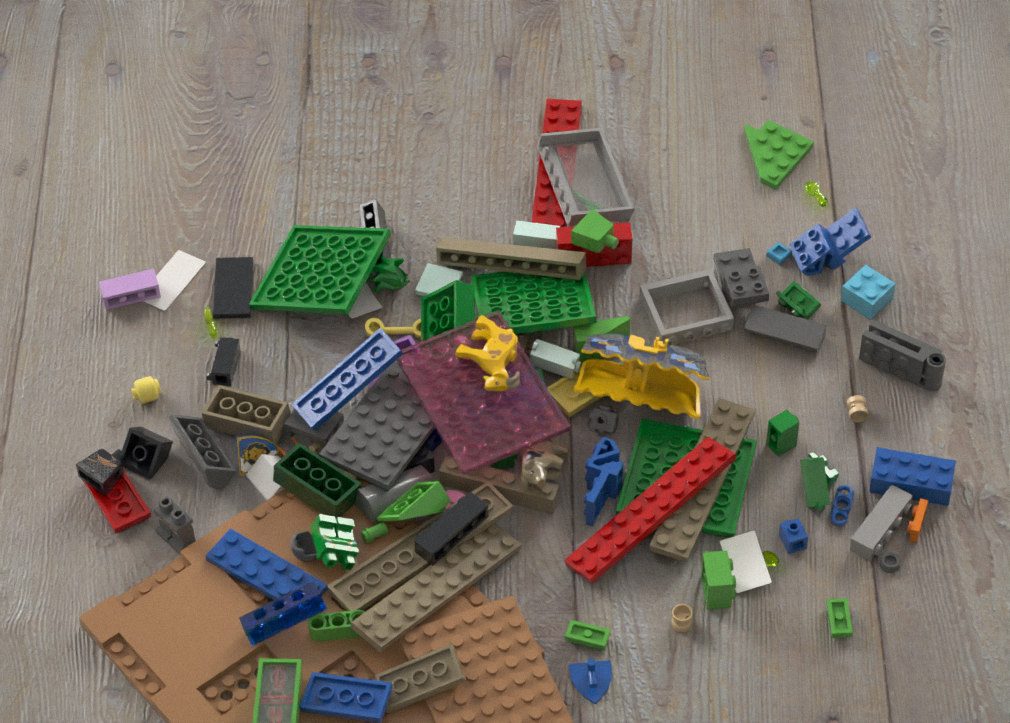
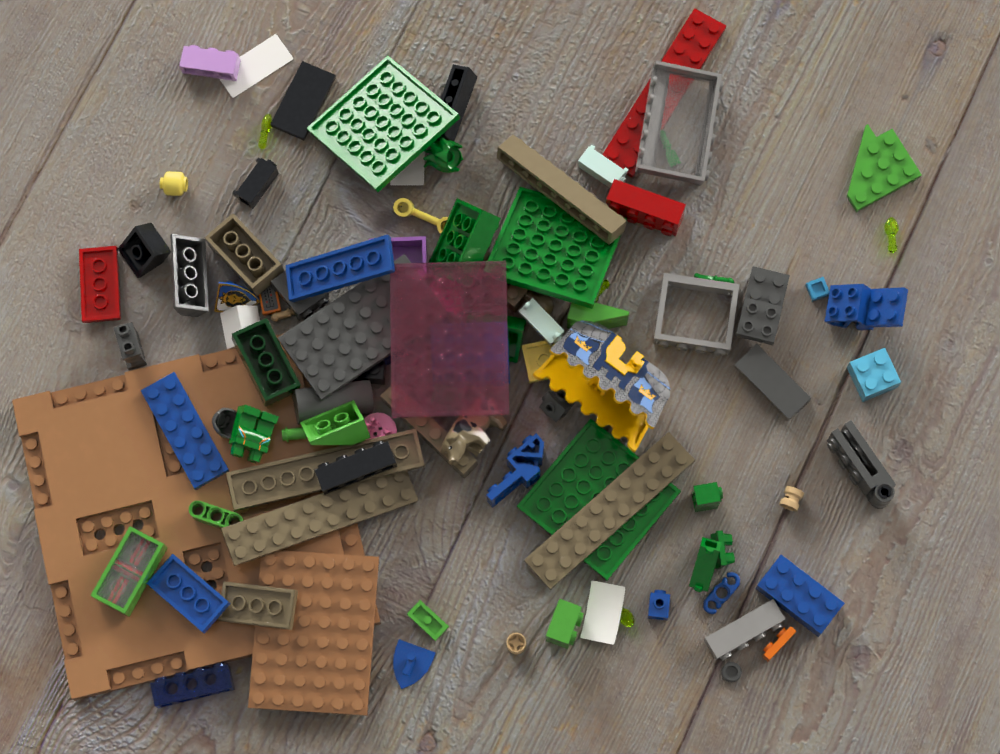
camera: 30 degrees right, 25 degrees up
(102, 469) = (95, 257): black torso -> none
(282, 613) = (172, 486): clear blue brick -> none
(436, 277) = (488, 179): light aqua tile -> none
(495, 356) = (475, 312): yellow animal -> none
(594, 233) = (643, 206): bright green torso -> none
(650, 510) = (544, 523): red plate -> none
(799, 300) = (803, 354): green bracket -> none
(839, 618) = (653, 708): bright green plate -> none

